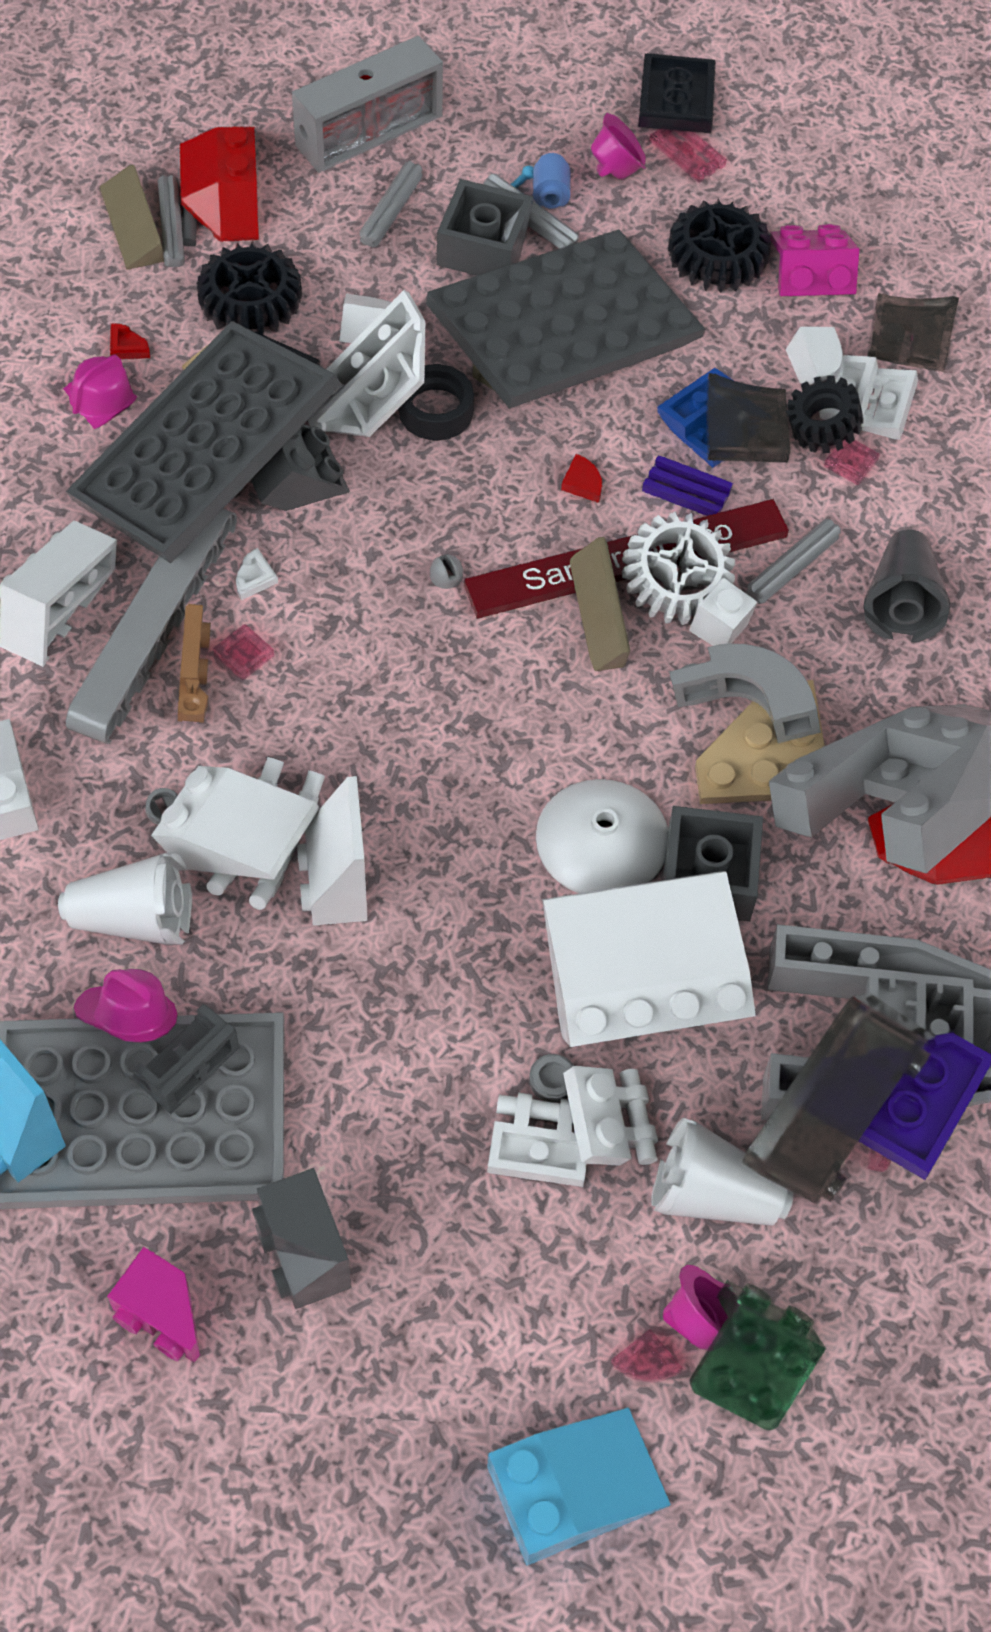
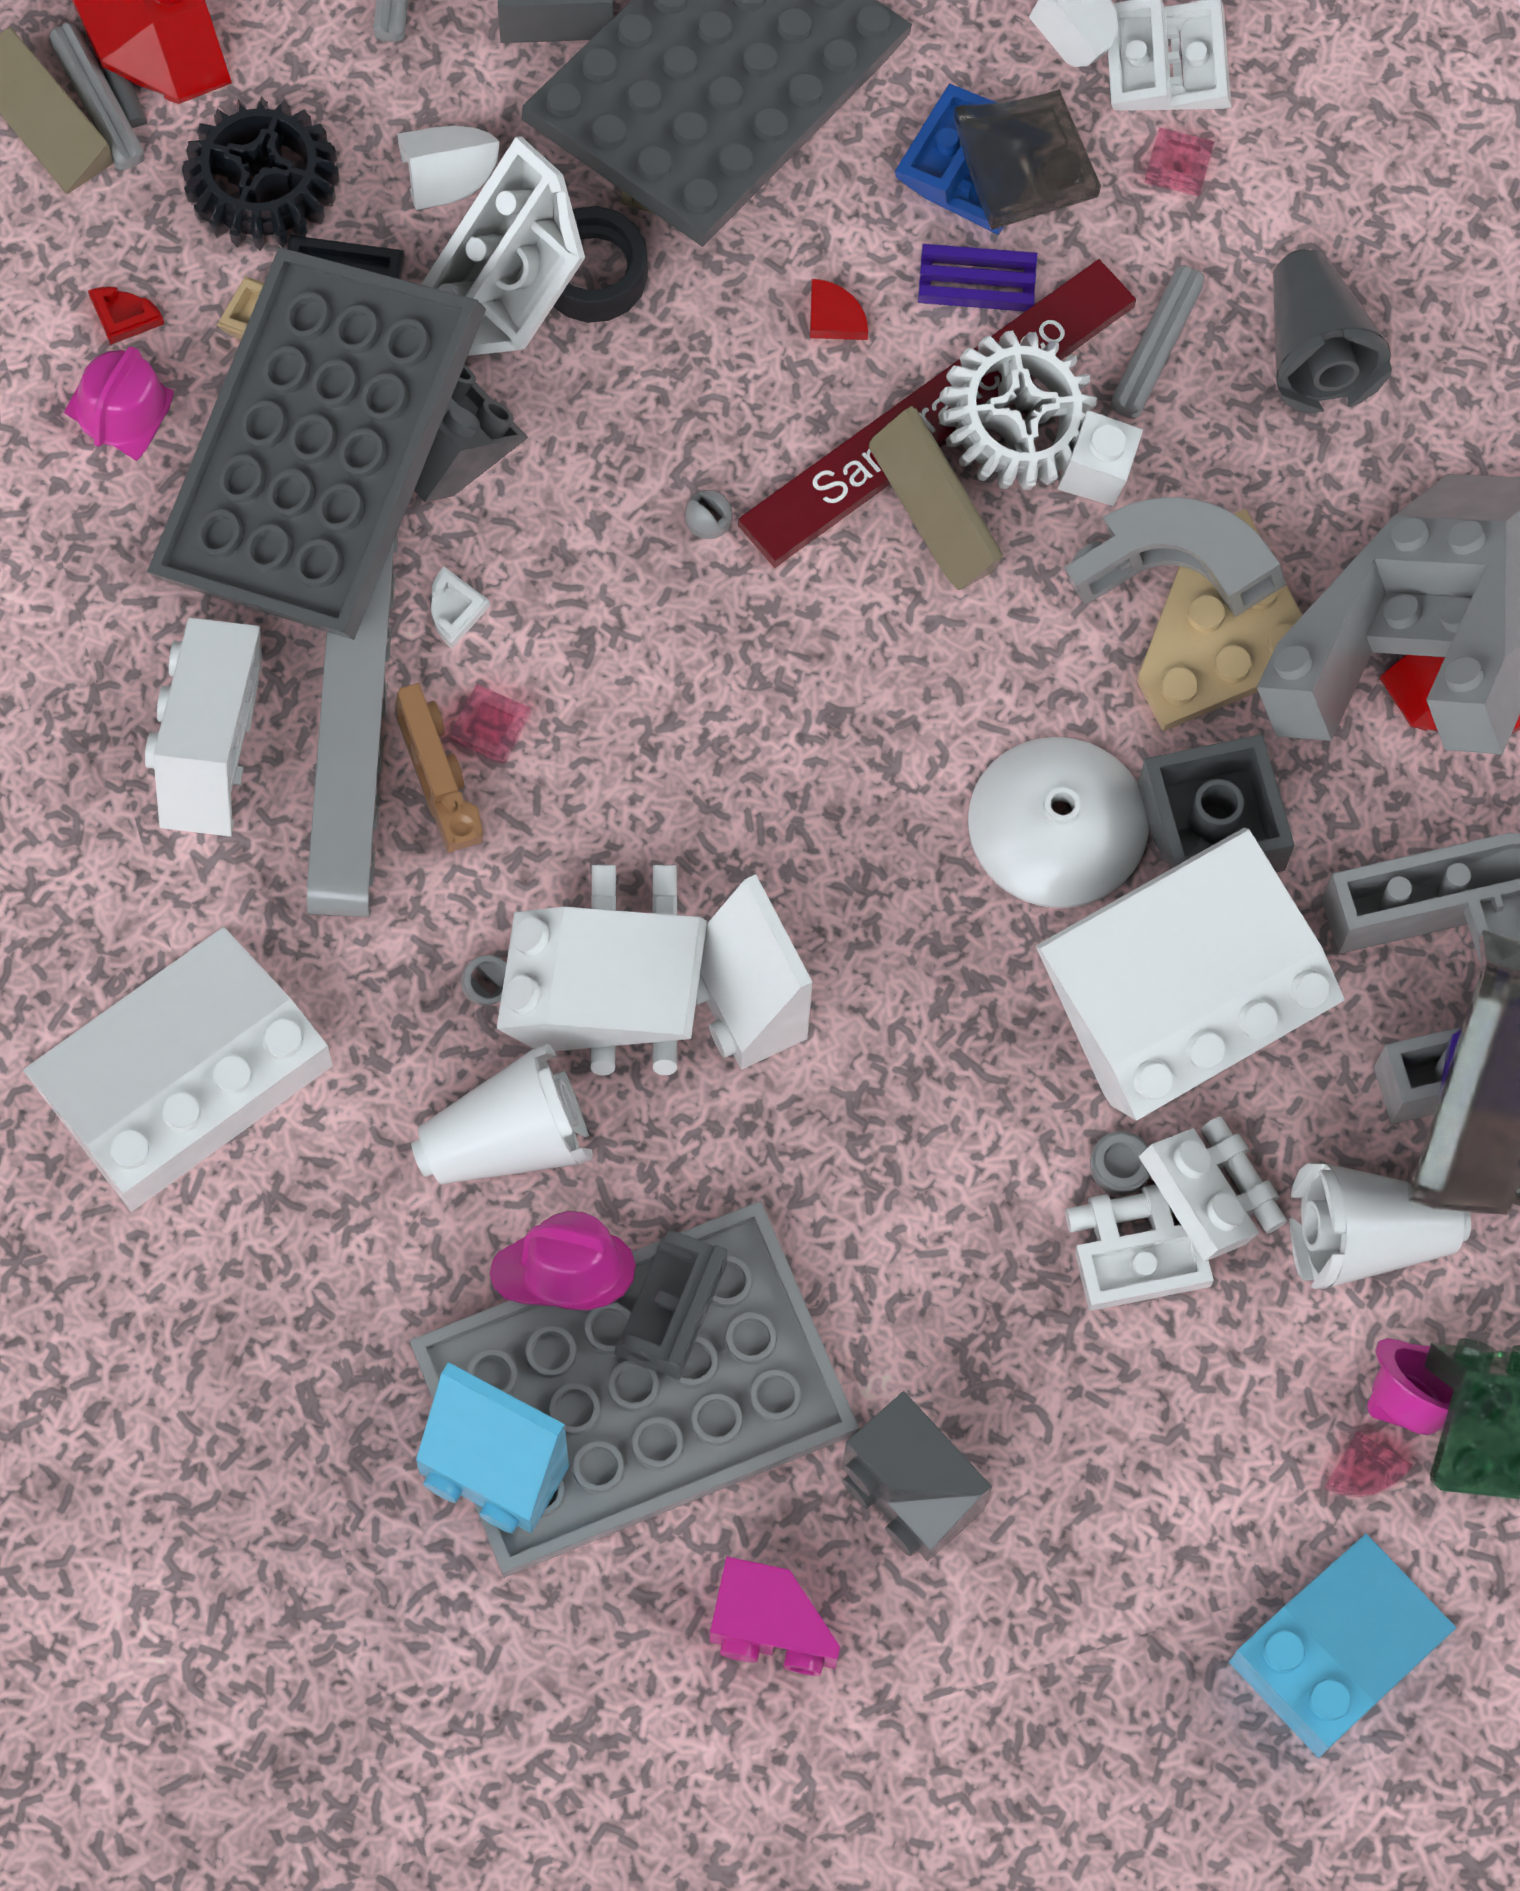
camera: 20 degrees left, 10 degrees up
(820, 397) = (1115, 81): black tyre -> none

